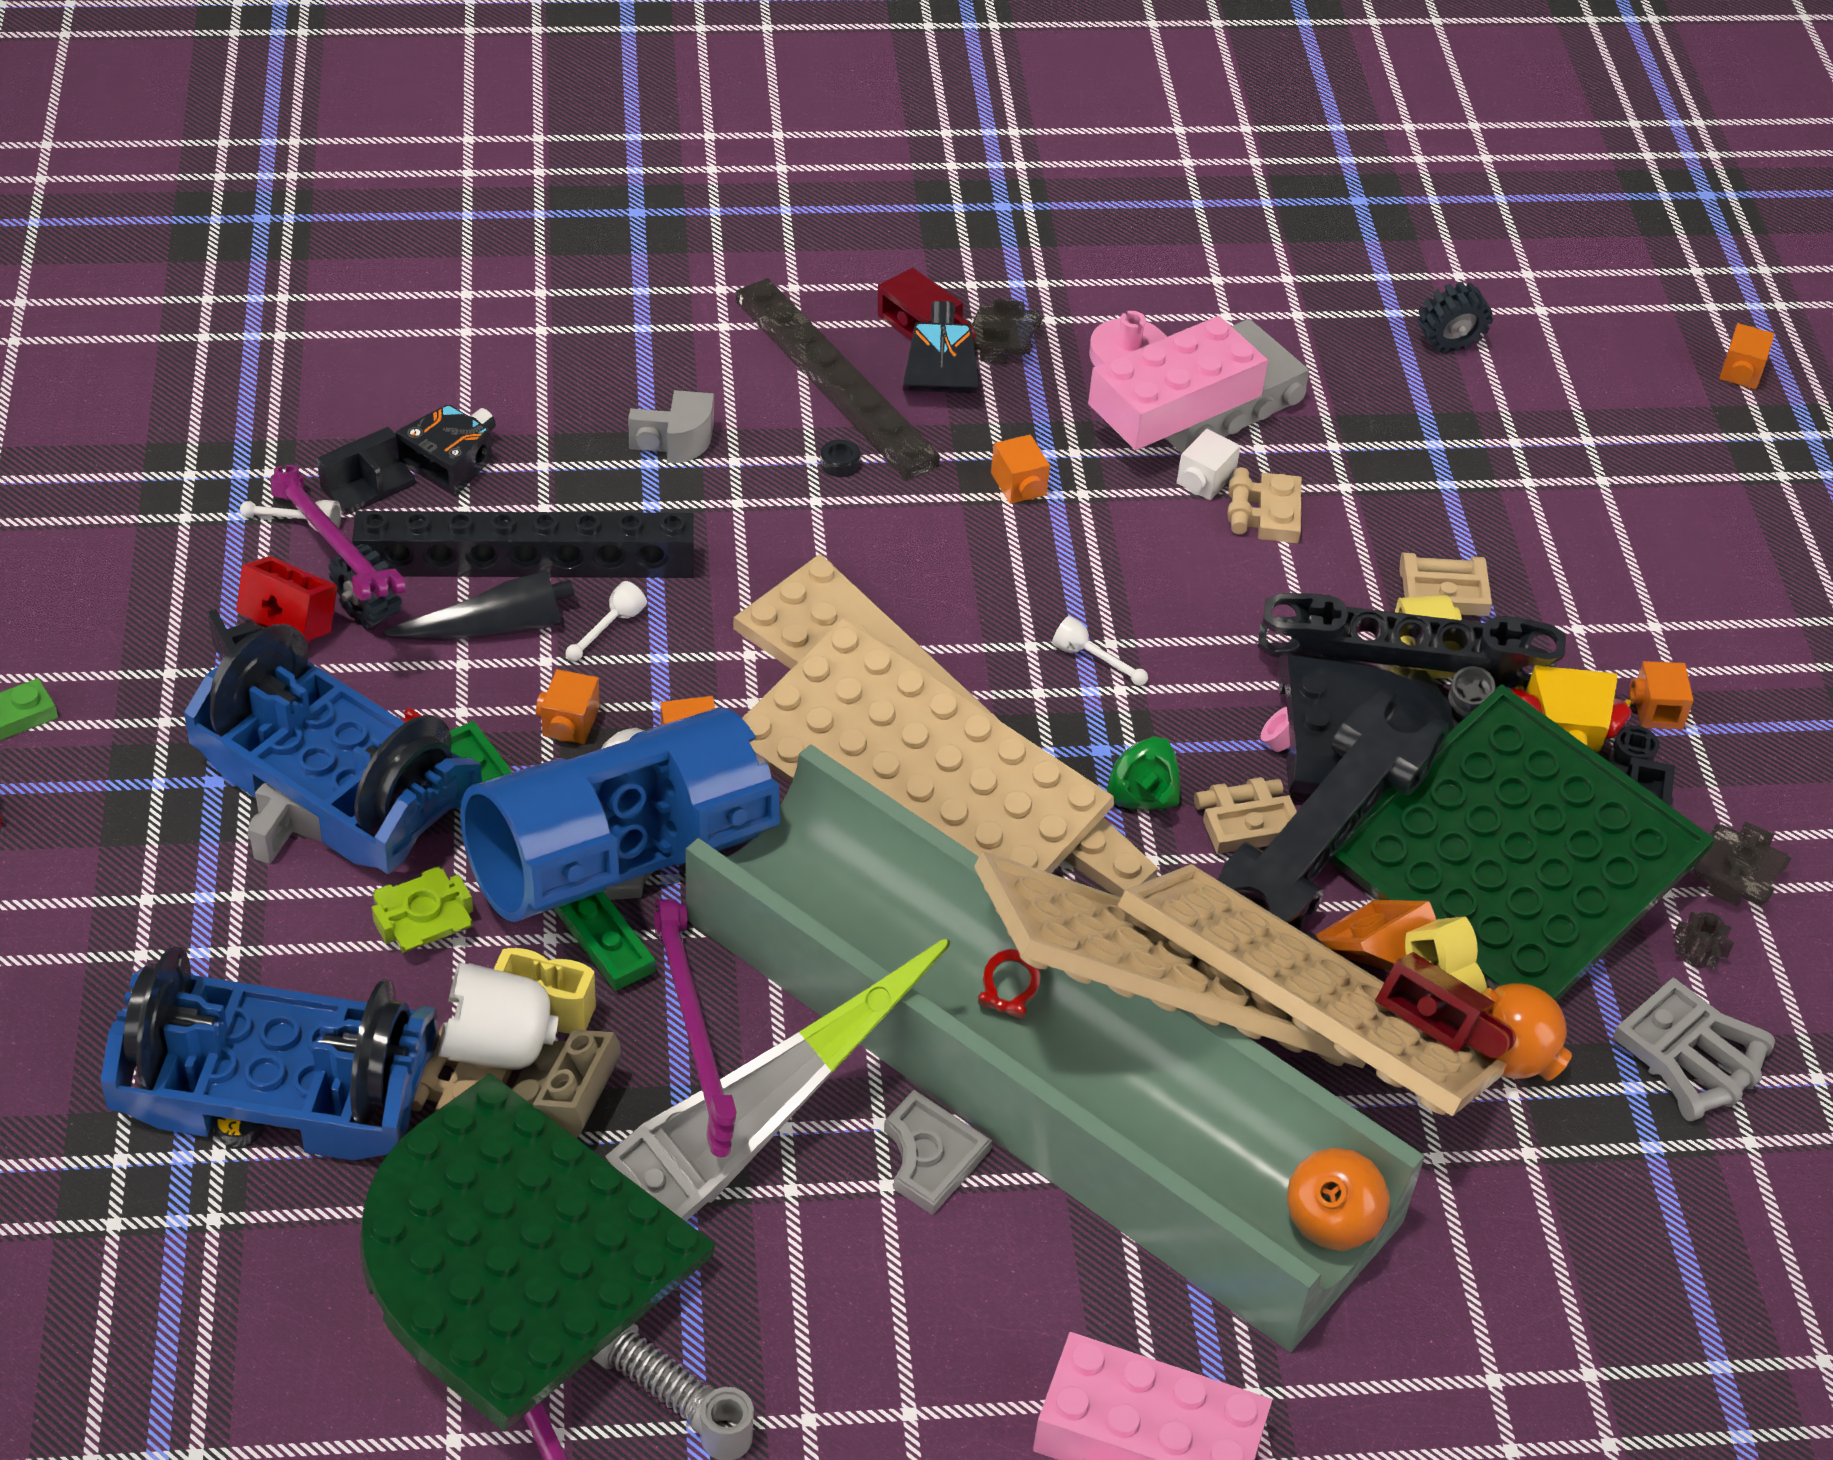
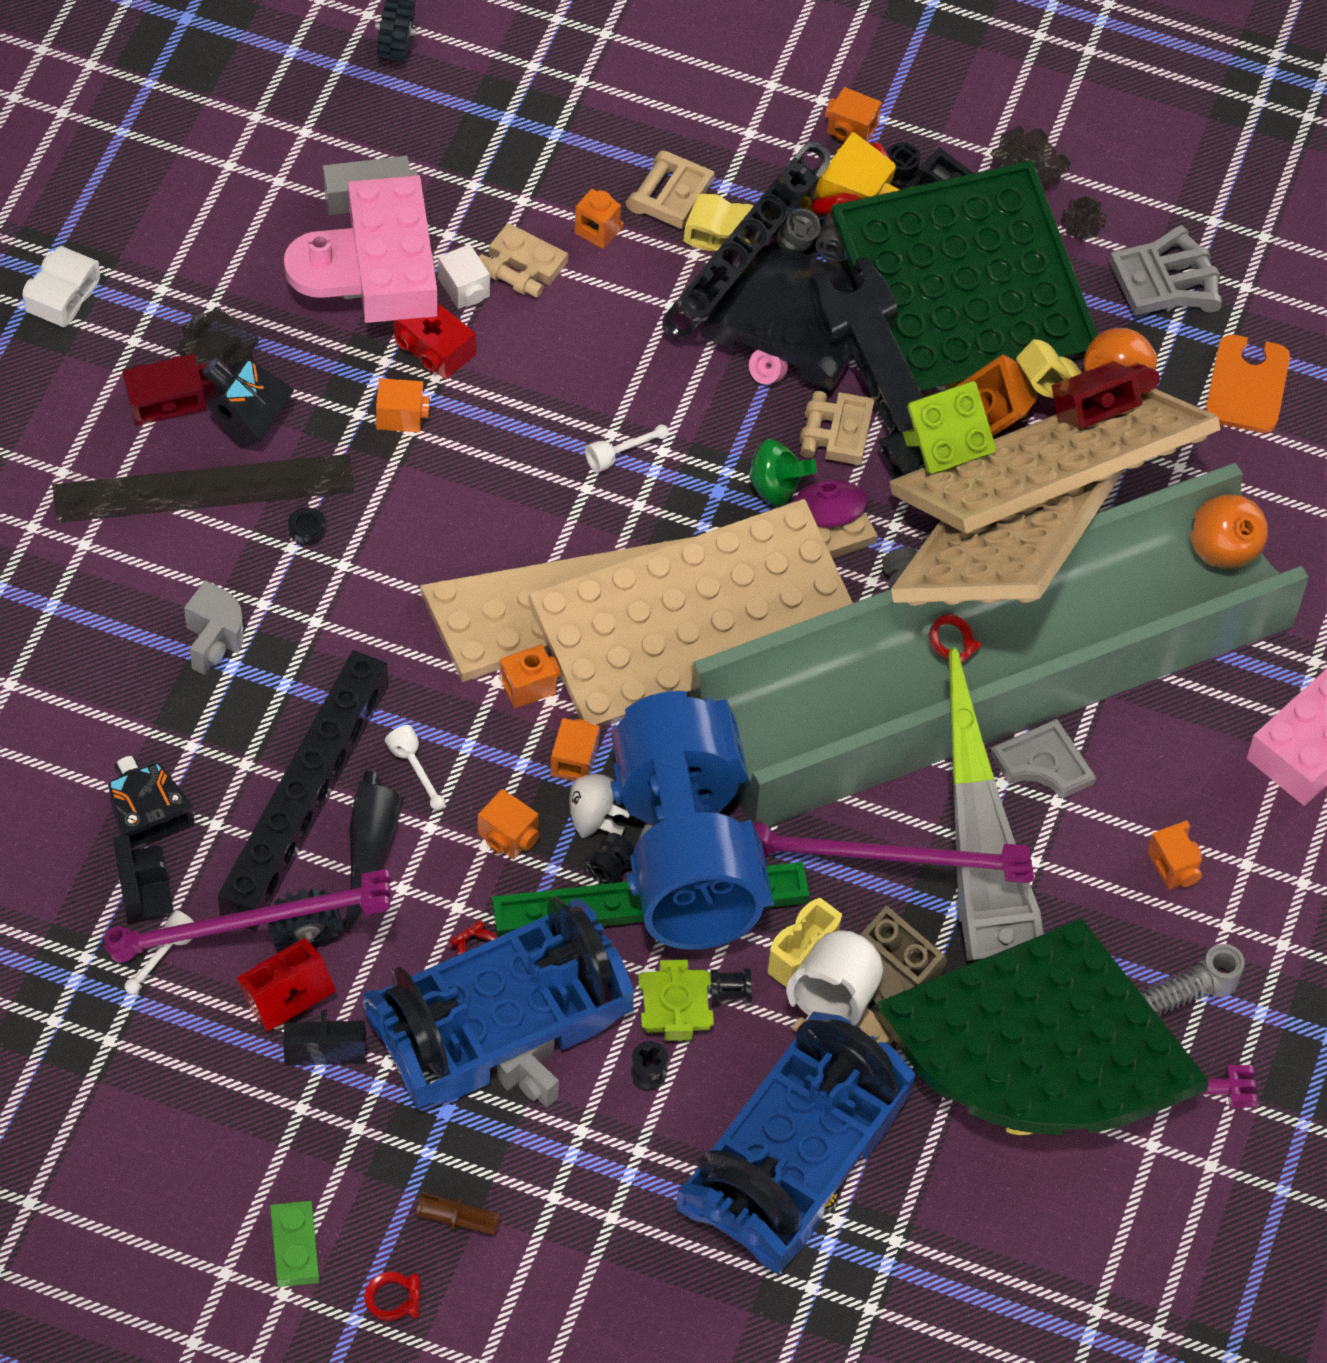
camera: 65 degrees left, 10 degrees up
(84, 821) = (457, 1214): none -> reddish brown axle
(323, 912) = (649, 1066): none -> black bush
(466, 947) = (731, 986): none -> black bush
(757, 662) = (529, 676): none -> orange brick
(866, 1320) = (1175, 856): none -> orange brick
(988, 213) = (61, 286): none -> white brick
(1117, 472) = (438, 341): none -> red brick
(1142, 838) = (834, 502): none -> magenta dish
(1282, 874) = (950, 427): none -> lime bracket
(1359, 536) = (602, 209): none -> orange brick
(1597, 1188) = (1247, 393): none -> orange piece

